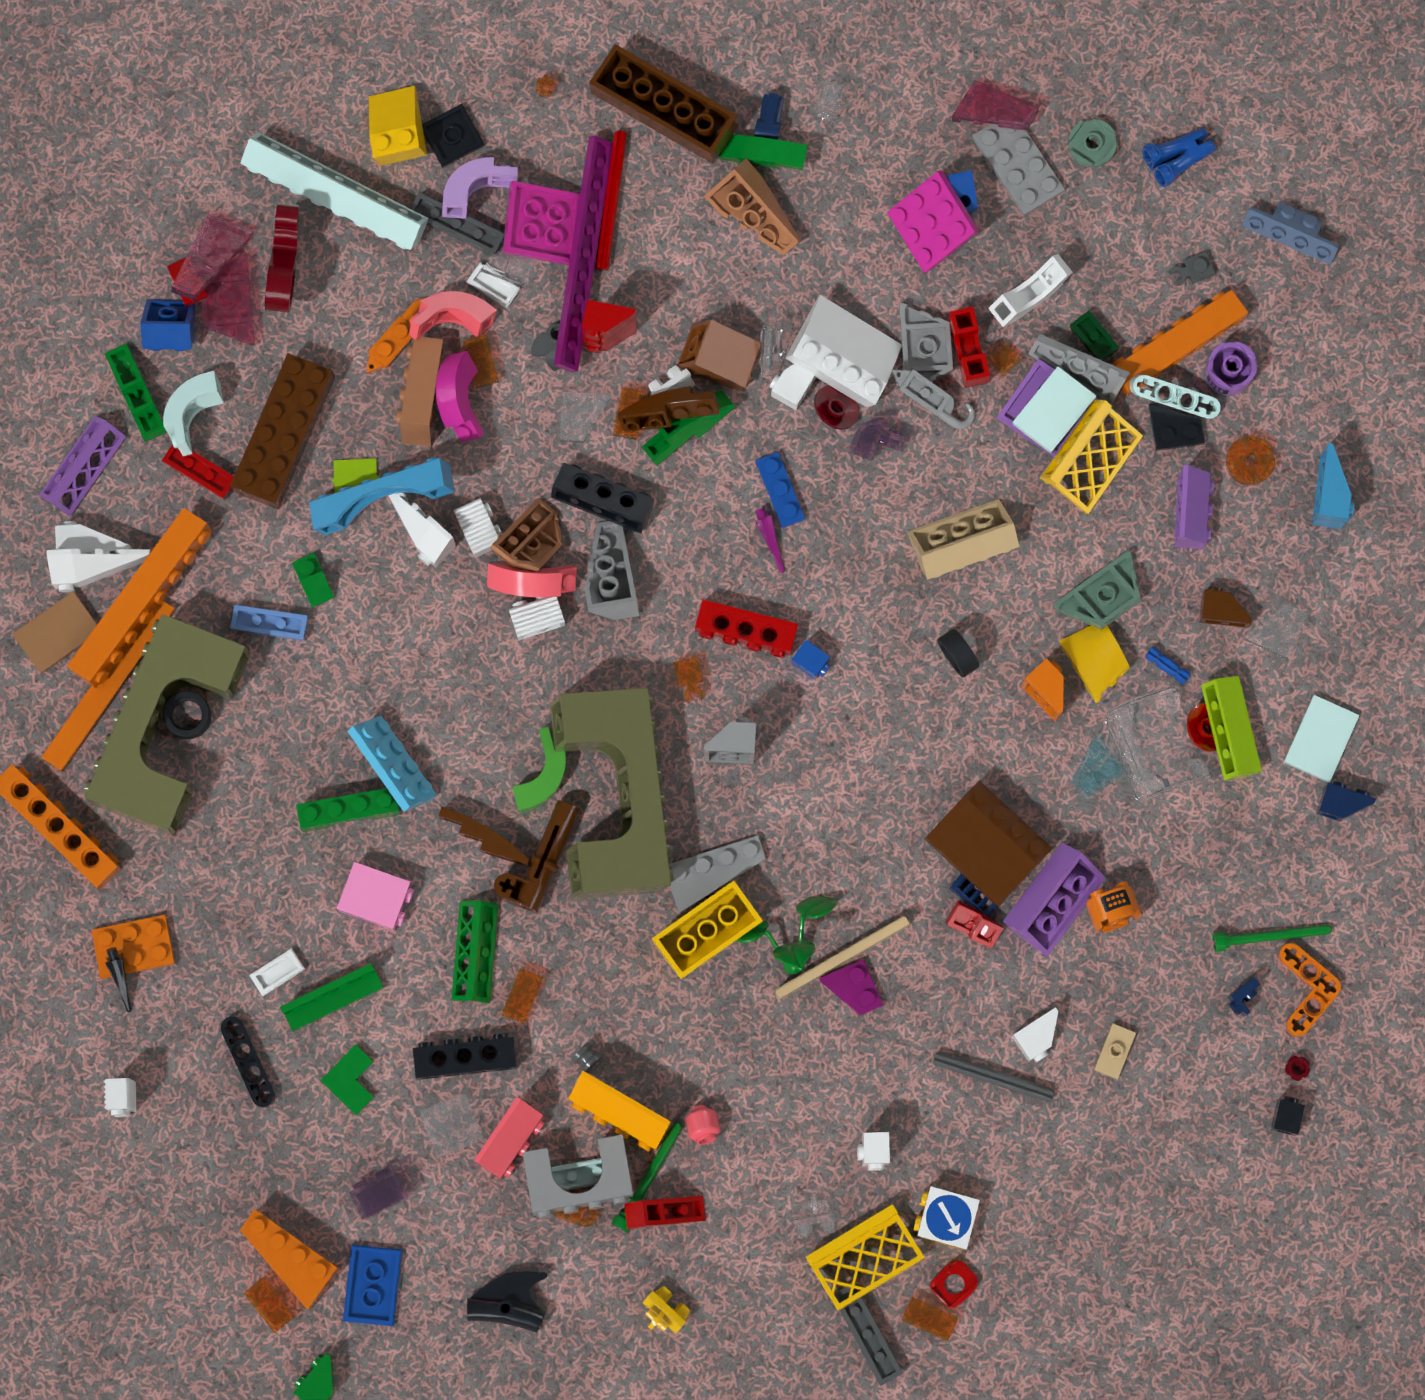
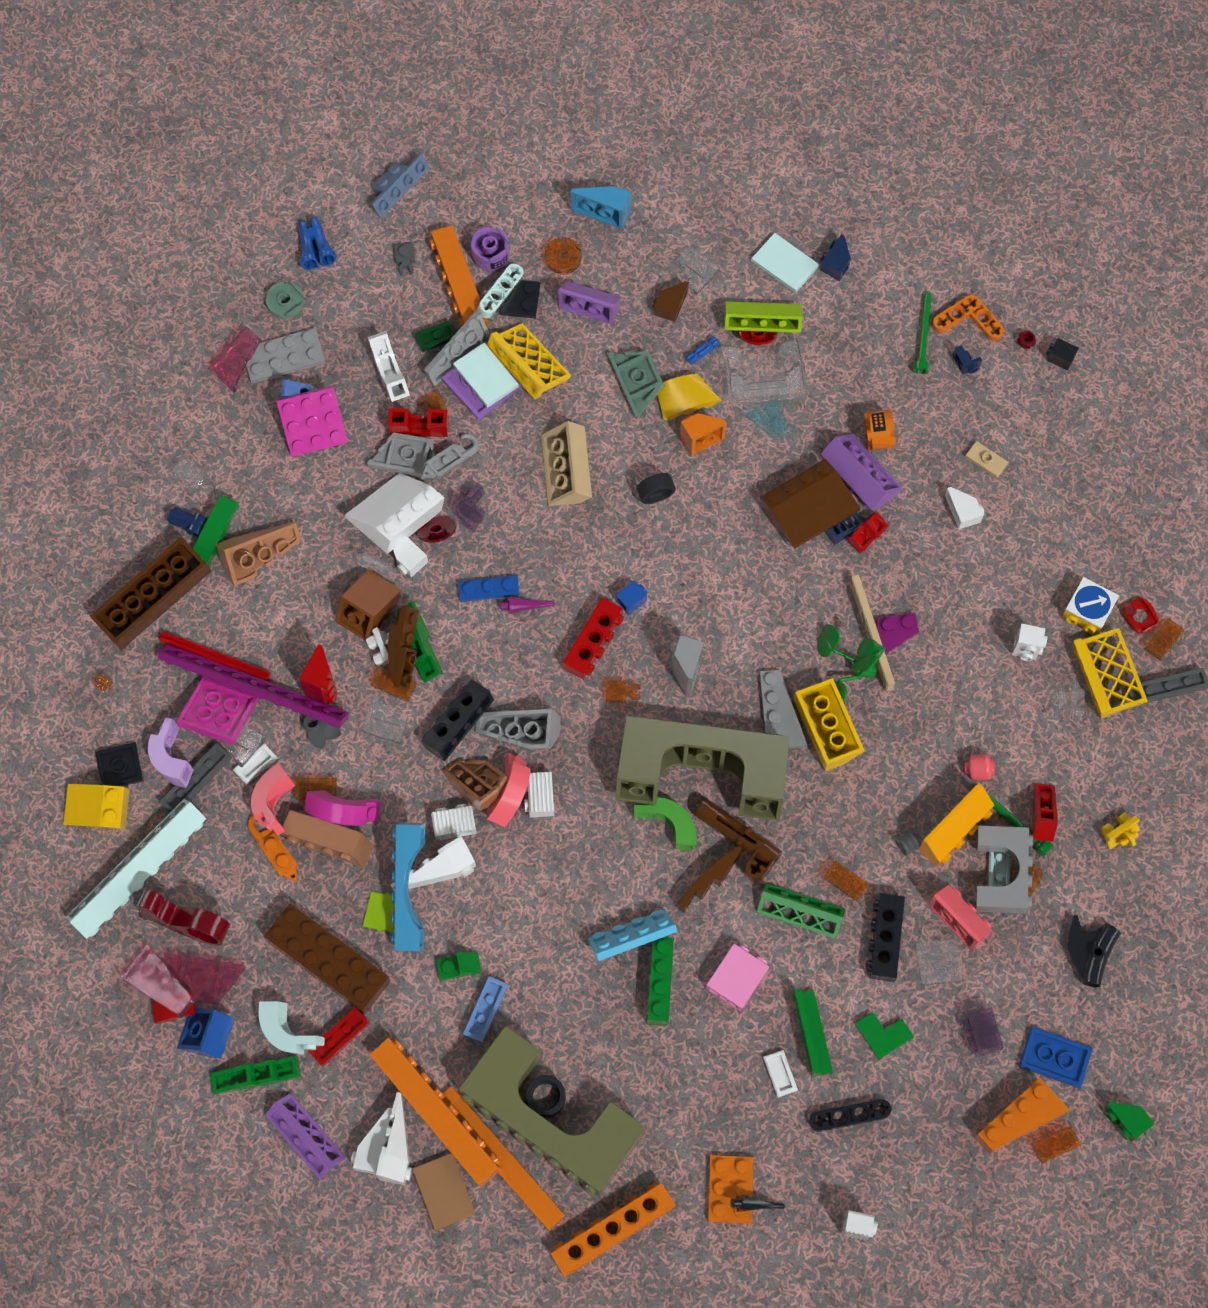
camera: 75 degrees left, 10 degrees down
(994, 1077) = (987, 548): dark grey axle -> none

